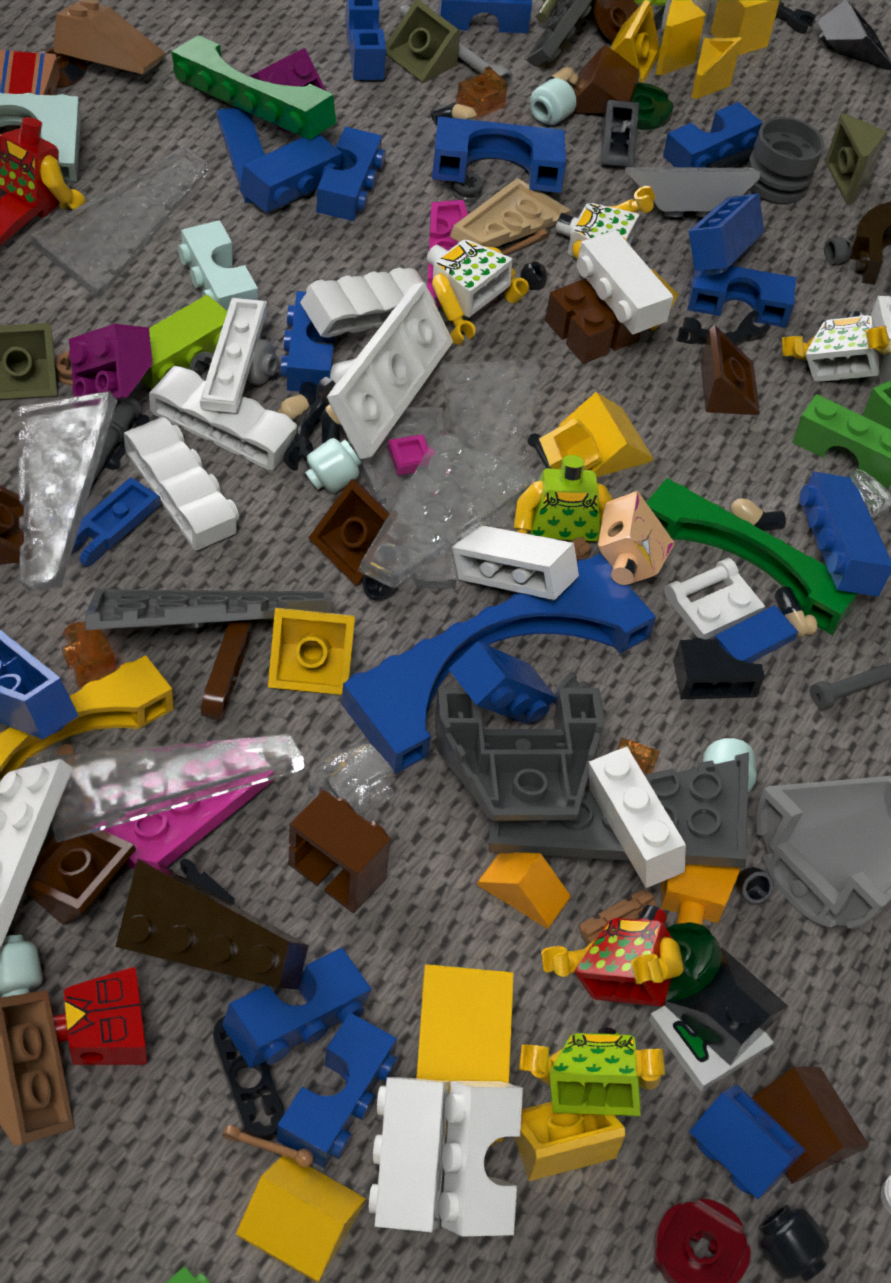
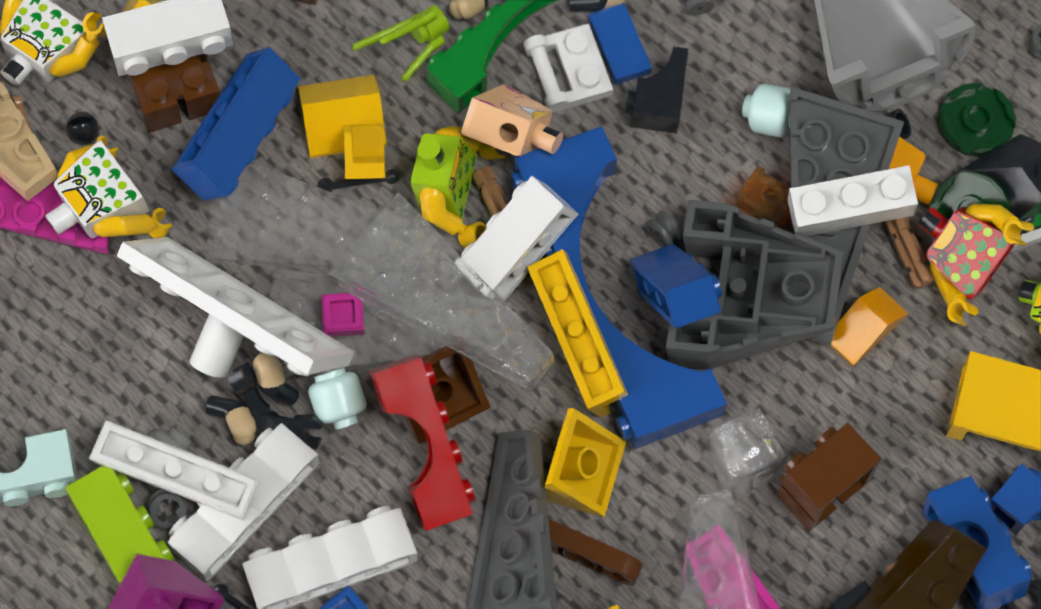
camera: 75 degrees left, 15 degrees up
(307, 358) = (179, 400): blue arch -> none
(334, 490) = (438, 491): none -> red arch
(357, 301) = (117, 312): white brick -> none
(372, 586) = (498, 392): black hinge -> none
(436, 622) = (578, 332): none -> yellow fence
(563, 354) = (237, 125): none -> blue brick
(713, 482) = (424, 26): none -> lime plant
(788, 977) = (980, 129): none -> dark green tile

